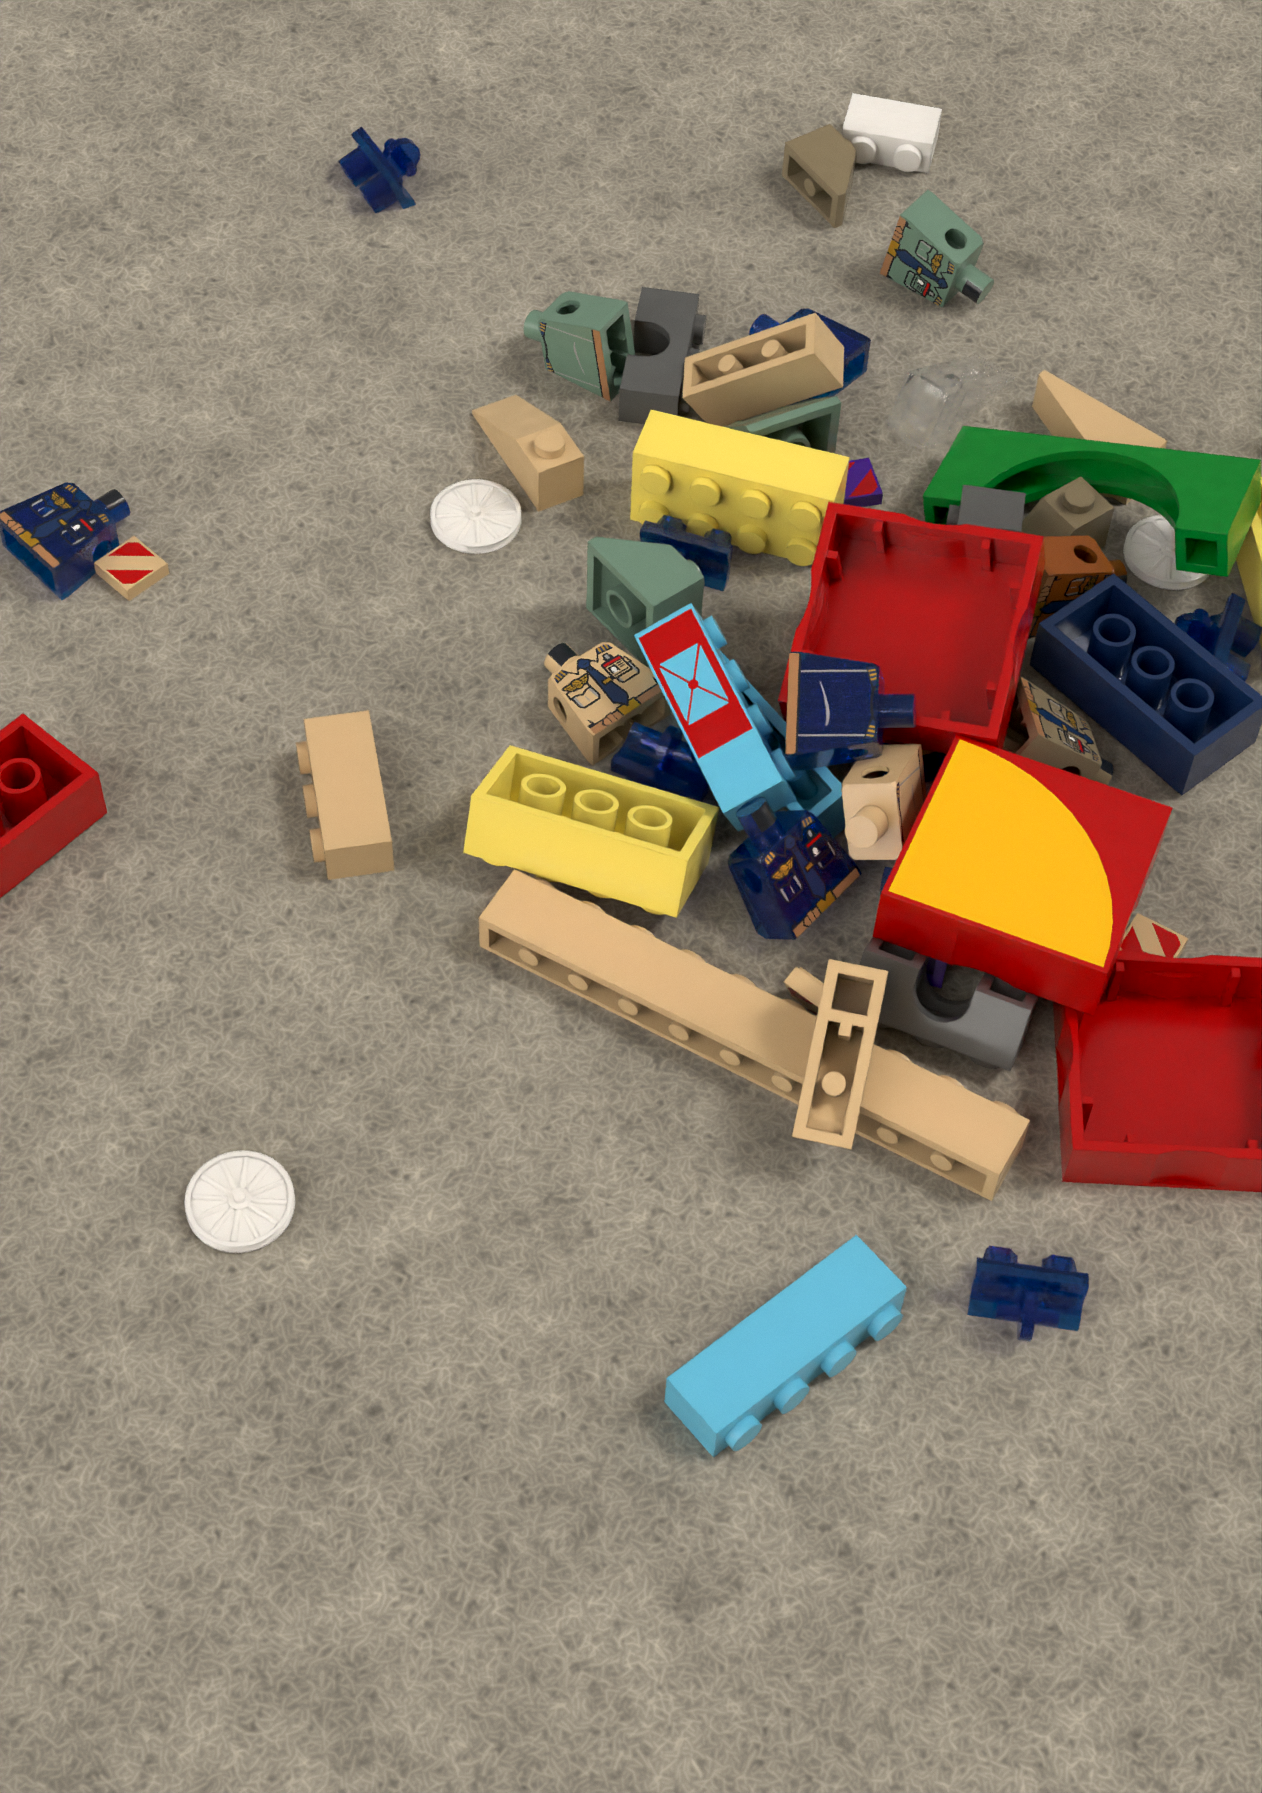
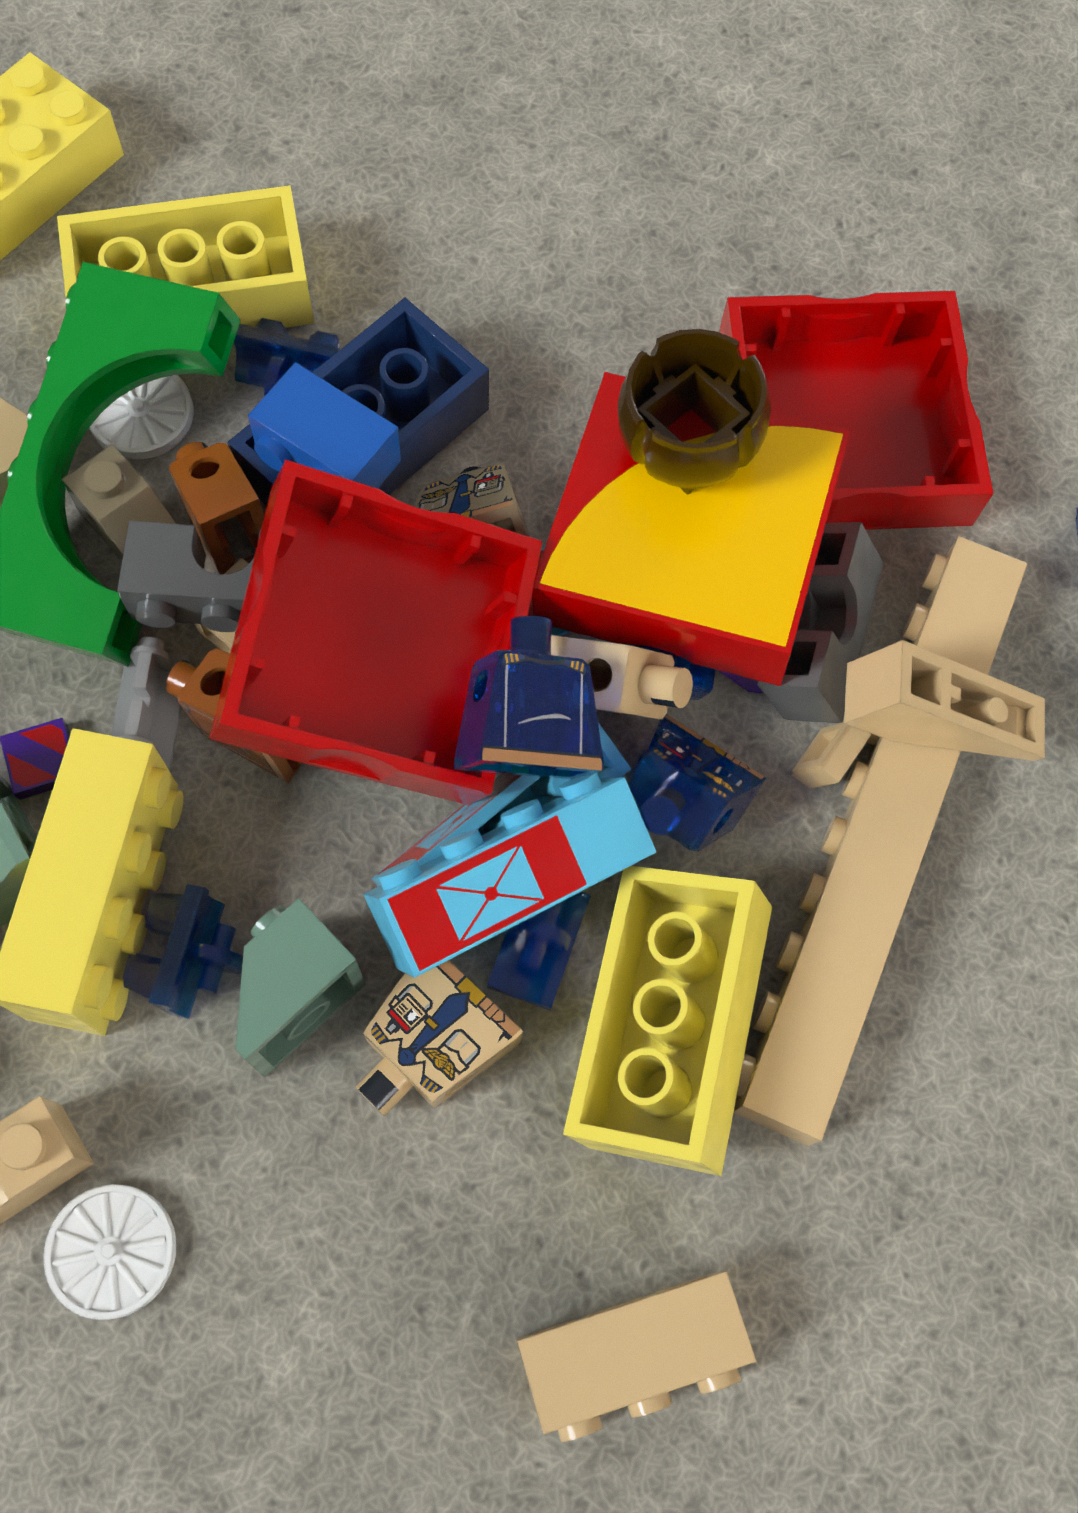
camera: 100 degrees left, 15 degrees up
(1104, 620) = (323, 429): none -> blue brick
(1117, 798) = (702, 374): none -> dark brown piece

